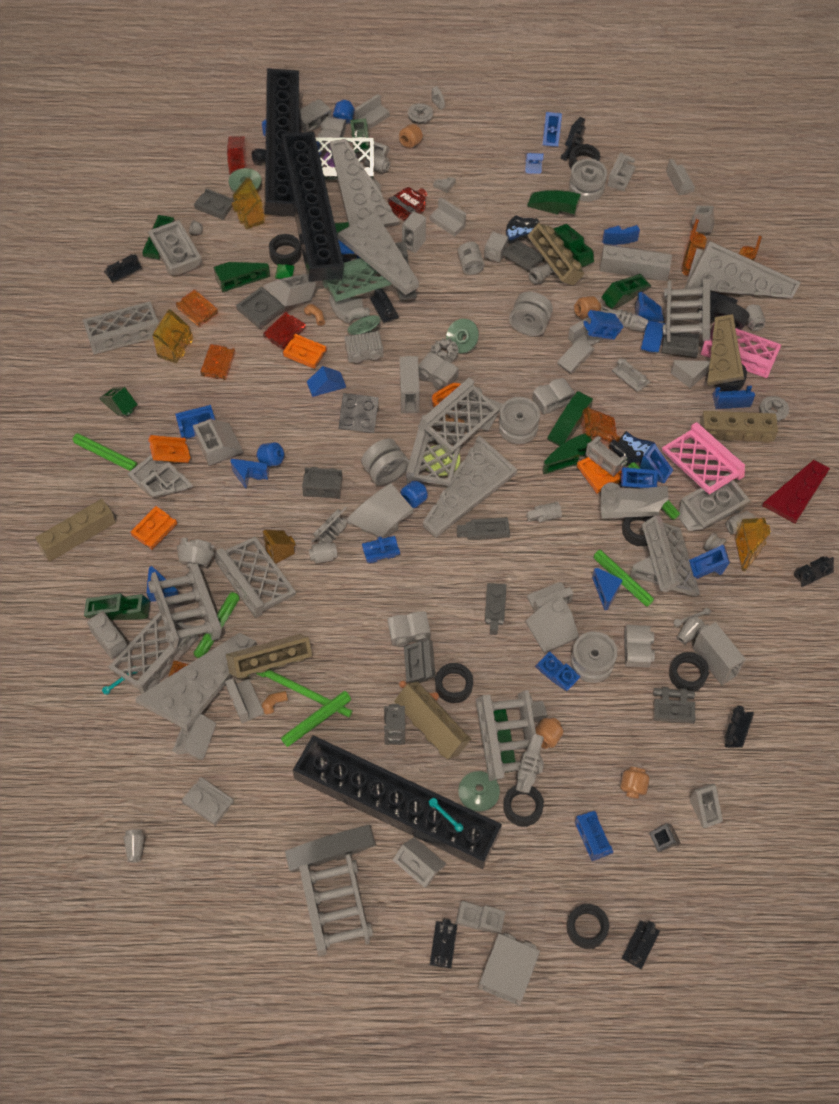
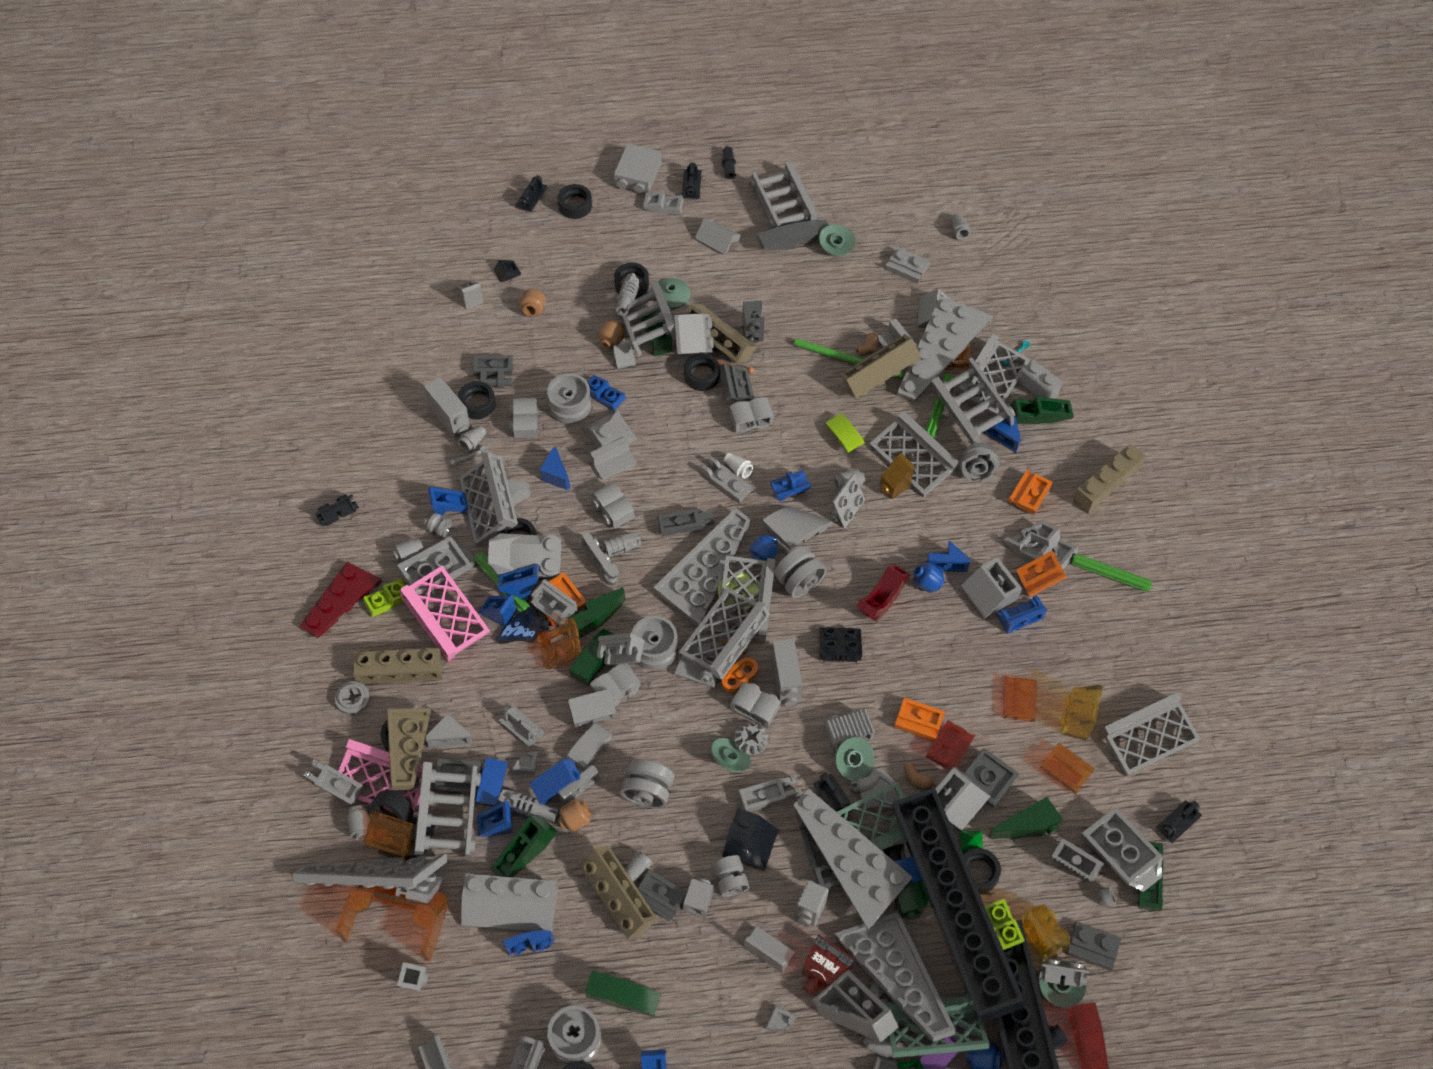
camera: 175 degrees right, 0 degrees up
(119, 401) = (1118, 630): dark green slope -> none
(210, 243) = (1077, 860): none -> light grey brick
(234, 180) = (1053, 970): none -> light grey hinge
(279, 197) = (1004, 924): none -> lime slope
(282, 826) = (837, 234): none -> sand green dish
(314, 446) = (884, 593): none -> dark red arch
(316, 718) = (825, 330): bright green axle -> none
(318, 601) = (845, 432): none -> lime slope
(322, 482) = (865, 554): dark grey hinge -> none
(325, 381) = (884, 681): blue slope -> none
(391, 169) = (856, 1008): none -> light grey wedge
(394, 974) = (728, 162): none -> black axle
(396, 801) = (743, 268): black brick -> none
(427, 577) = (738, 465): none -> white cone
(434, 311) = (768, 793): none -> light grey hinge
(434, 804) = (710, 256): teal hinge -> none
(440, 568) = (726, 480): none -> light grey hinge
(452, 285) = (750, 839): none -> black slope
(461, 703) = (693, 333): none -> light grey slope
(495, 606) = (668, 447): dark grey hinge -> none
(519, 228) = (667, 941): black arm -> none
(548, 406) = (620, 648): none -> light grey hinge
(551, 548) = (613, 505): none -> light grey brick
(563, 497) = (599, 559): none -> light grey hinge
(573, 373) = (592, 708): none -> light grey panel
(575, 243) = (594, 921): dark green slope -> none
(593, 836) = (569, 263): blue hinge -> none
(626, 351) = (527, 763): none -> light grey tile
(627, 581) = (537, 486): bright green axle -> none
(724, 295) = (389, 834): none -> clear orange plate
(733, 399) = (398, 700): blue hinge -> none
(738, 731) = (433, 354): black hinge -> none
(750, 540) = (399, 519): clear yellow slope -> none
(758, 487) = (384, 599): none -> lime slope
(780, 343) = (335, 783): none -> light grey hinge

